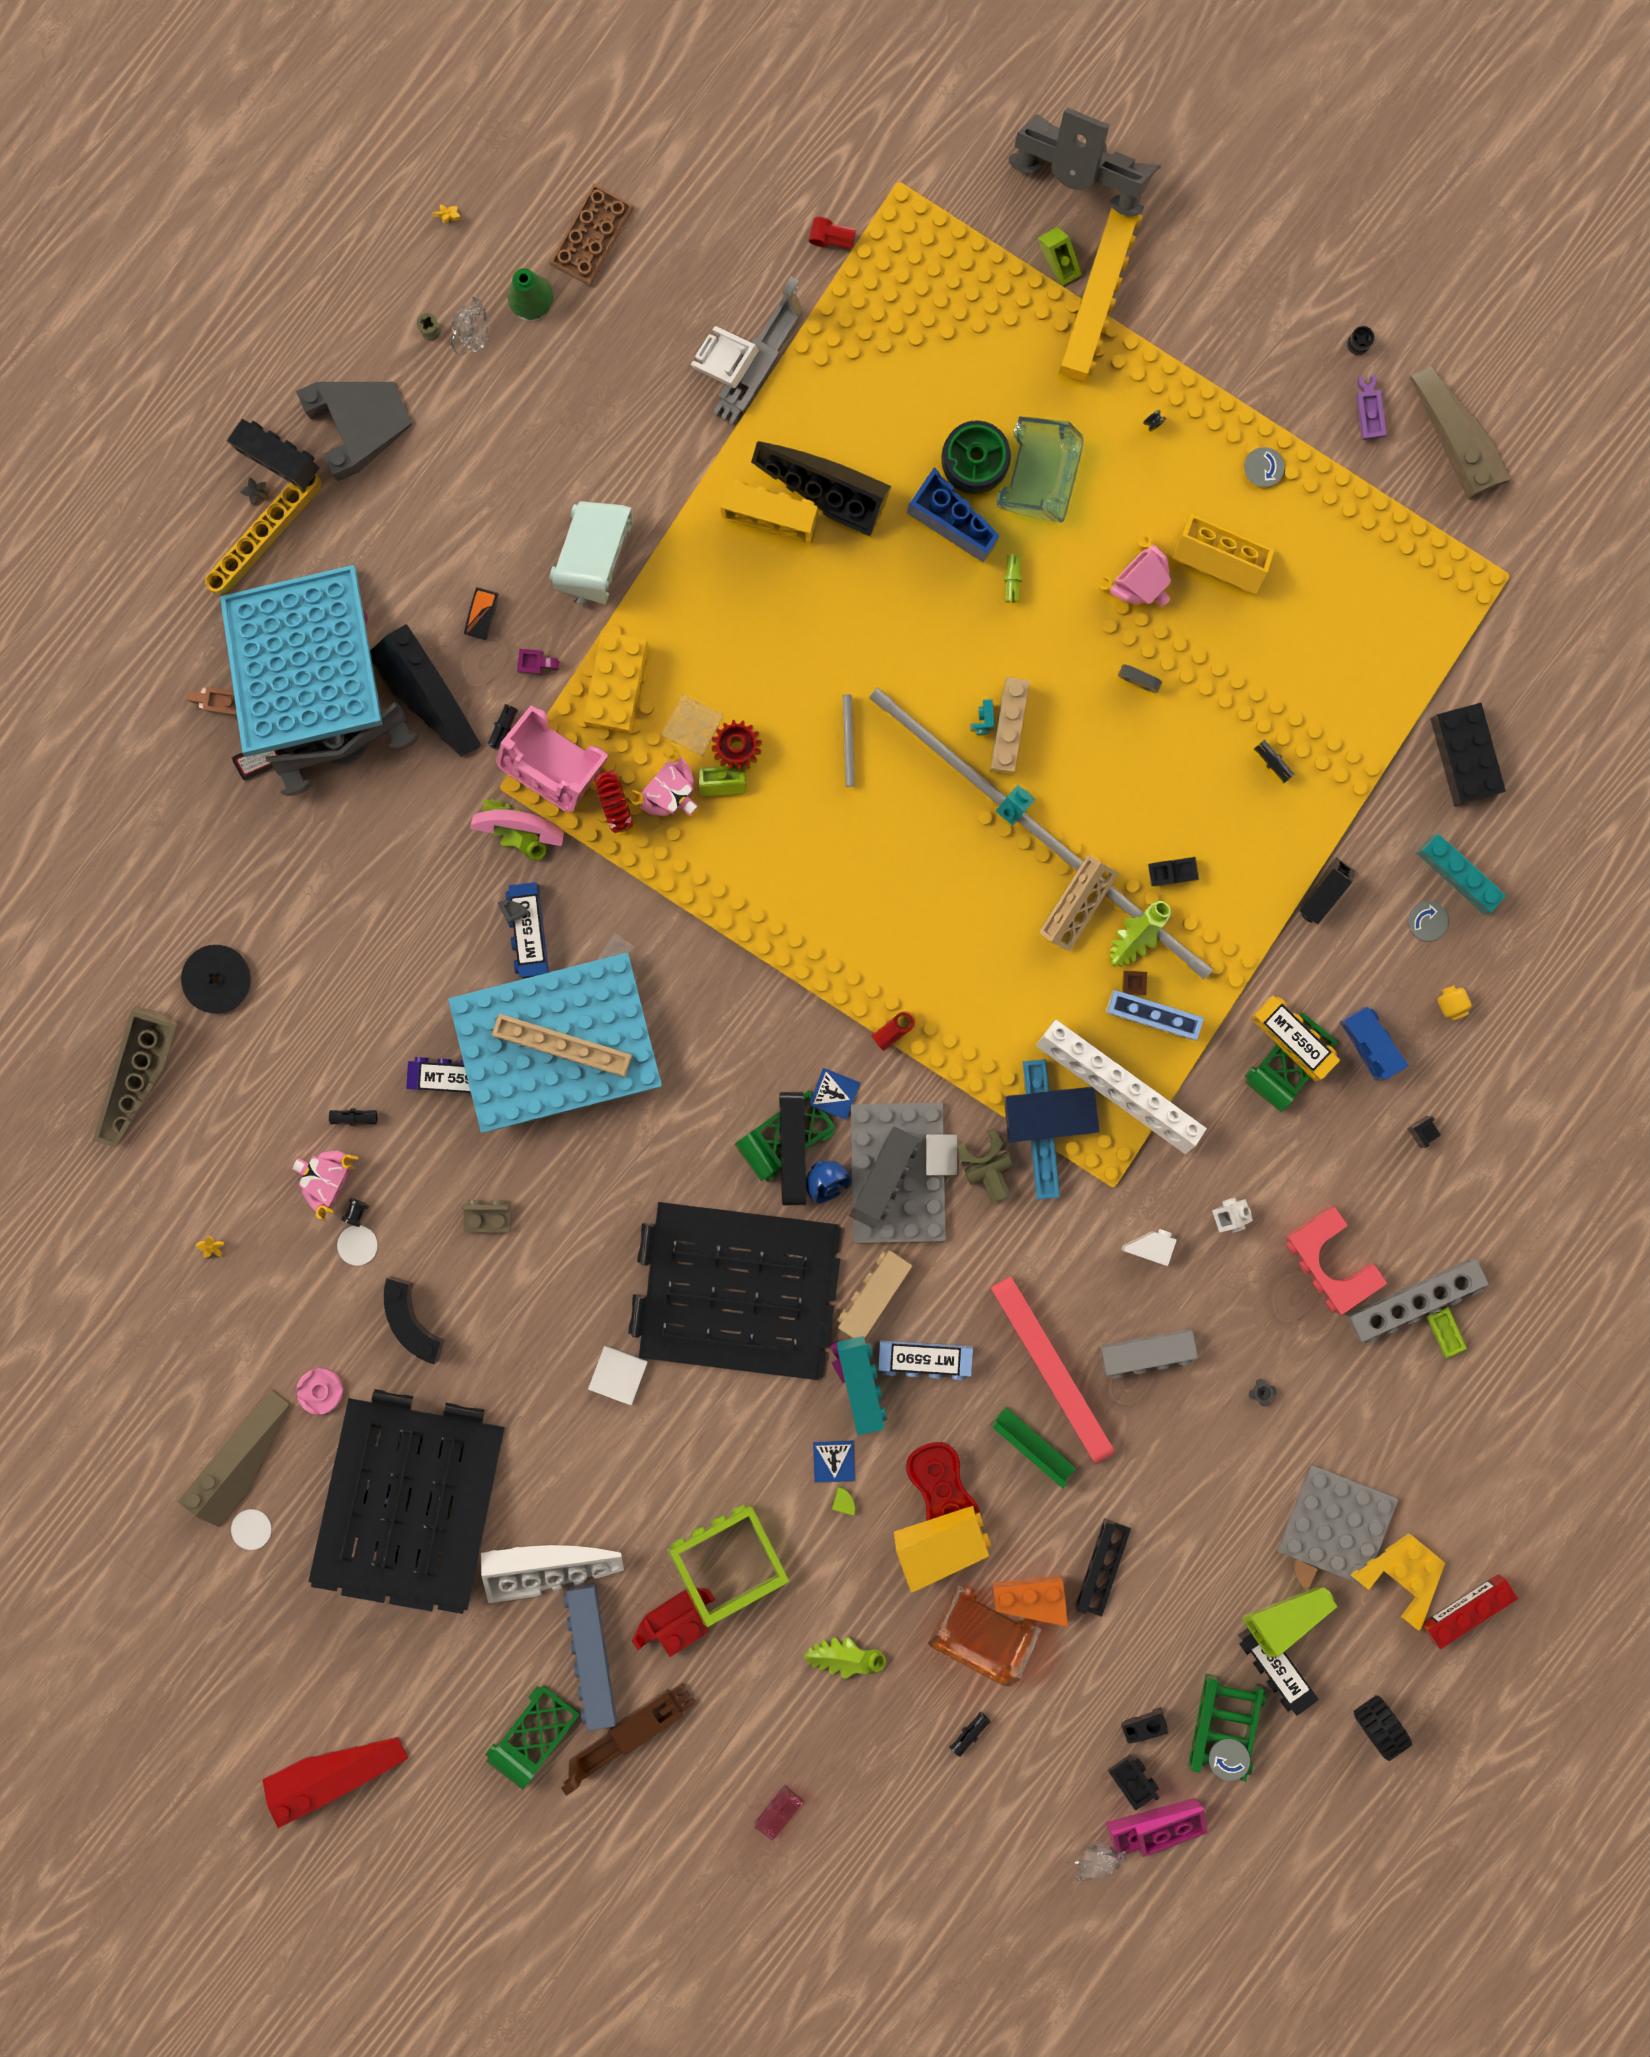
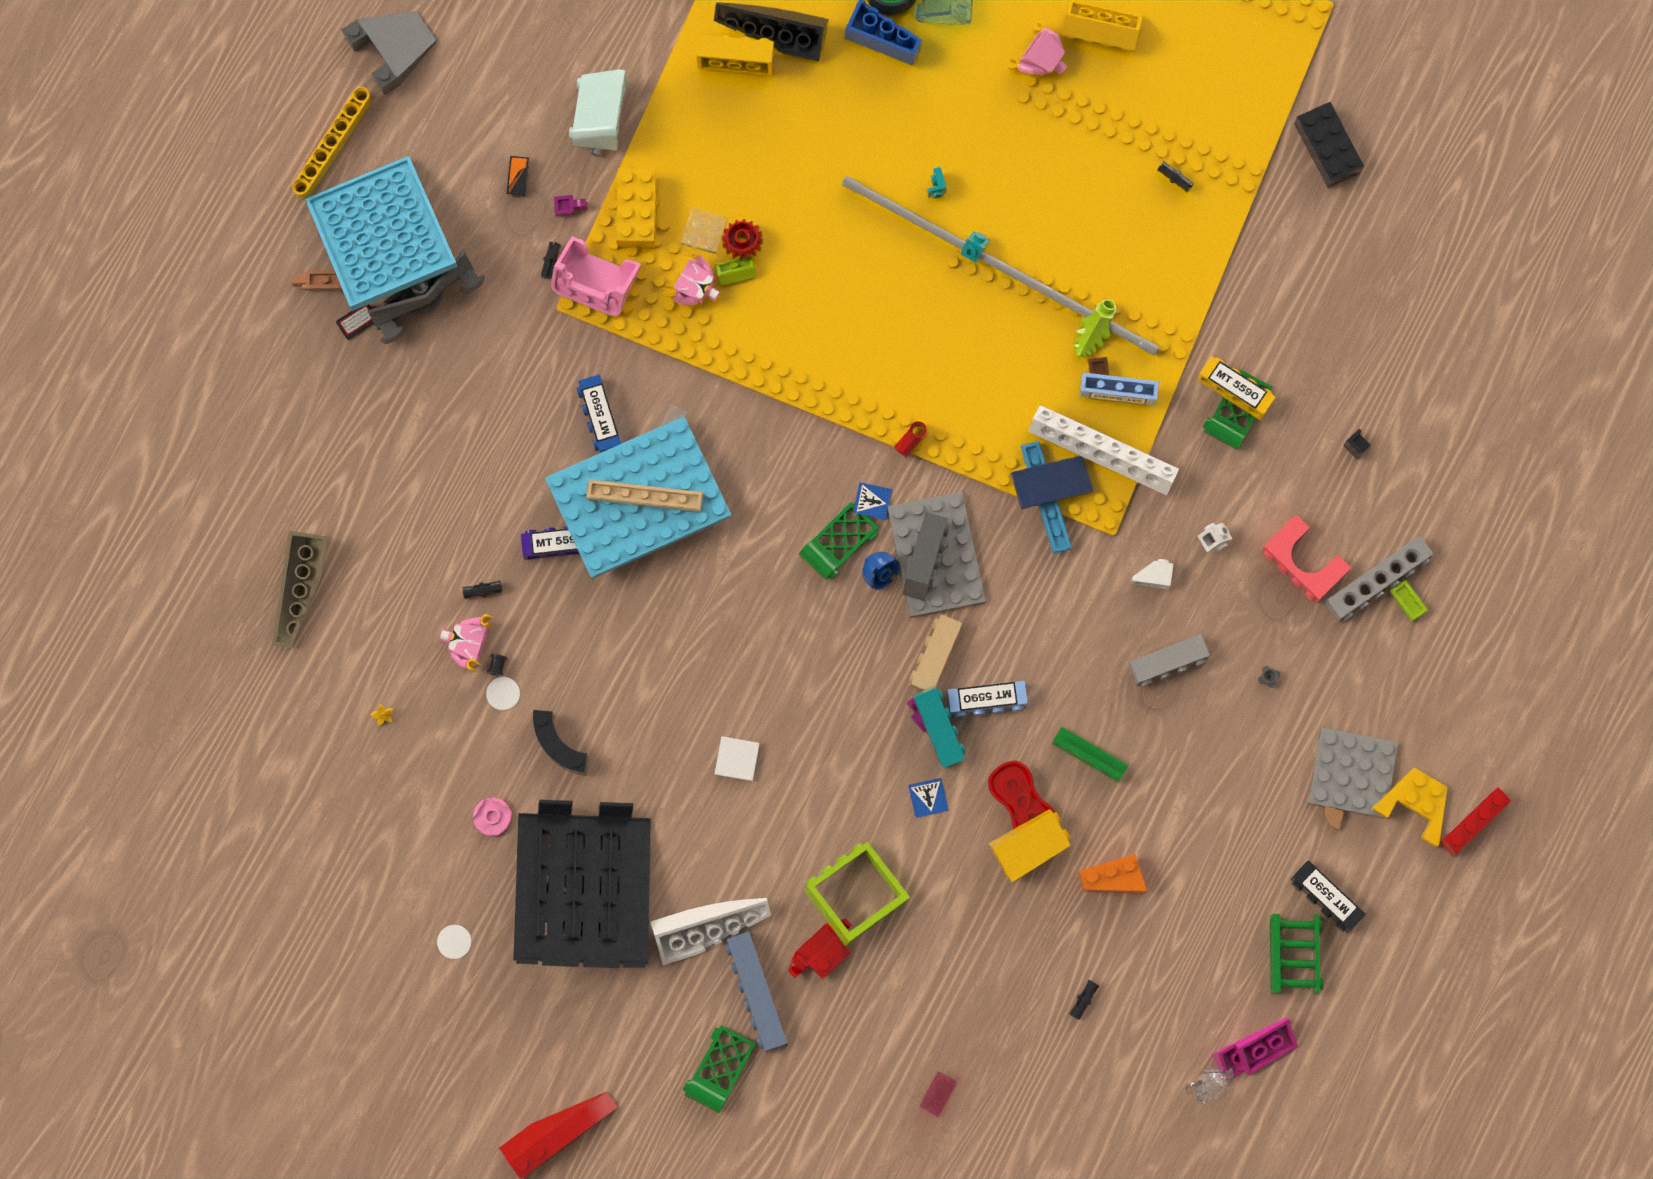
camera: 10 degrees left, 10 degrees down
(215, 997) = (349, 485): black piece -> none
(234, 1467) = (432, 890): dark tan wedge -> none
(254, 490) = (319, 113): dark grey plant -> none
(273, 454) = (331, 80): black brick -> none
(419, 685) = (470, 230): black wedge -> none
(487, 1217) = (606, 649): dark tan bracket -> none
(512, 910) = (585, 399): dark grey tile -> none
(518, 820) = (577, 328): bright pink slope -> none
(523, 840) = (573, 338): lime plant -> none
(613, 801) = (652, 299): red gear -> none
(627, 1735) = (801, 1050): reddish brown hinge -> none
(755, 1346) = (846, 715): black piece -> none
(792, 1148) = (846, 547): black beam -> none
(843, 1502) = (942, 828): lime tile -> none
(845, 1657) = (968, 956): lime plant -> none
(848, 740) = (831, 221): light grey bar -> none
(941, 1154) = (969, 532): white sticker -> none
(984, 1638) = (1079, 918): clear orange windscreen -> none
(988, 1168) = (1008, 536): olive connector -> none
(1009, 726) = (958, 186): tan brick -> none
(1013, 578) = (939, 73): lime pin -> none
(1053, 1370) = (1094, 689): coral beam -> none
(1075, 901) = (1037, 310): tan fence -> none
(1095, 1567) = (1160, 840): black fence -> none
(1133, 1782) = (1228, 1013): black bracket -> none
(1140, 678) = (1055, 131): dark grey beam -> none
(1145, 1726) = (1227, 965): black leg -> none
(1173, 871) = (1112, 276): black slope -> none
(1229, 1759) = (1302, 977): light grey sticker -> none
(1288, 1620) = (1325, 852): lime slope -> none
(1327, 891) = (1238, 270): black slope -> none
(1373, 1044) = (1300, 382): blue wedge -> none
(1382, 1728) = (1423, 926): black tyre -> none
(1428, 921) = (1325, 280): light grey sticker -> none
(1454, 1002) = (1359, 338): yellow head -> none
(1461, 874) = (1343, 237): teal brick -> none

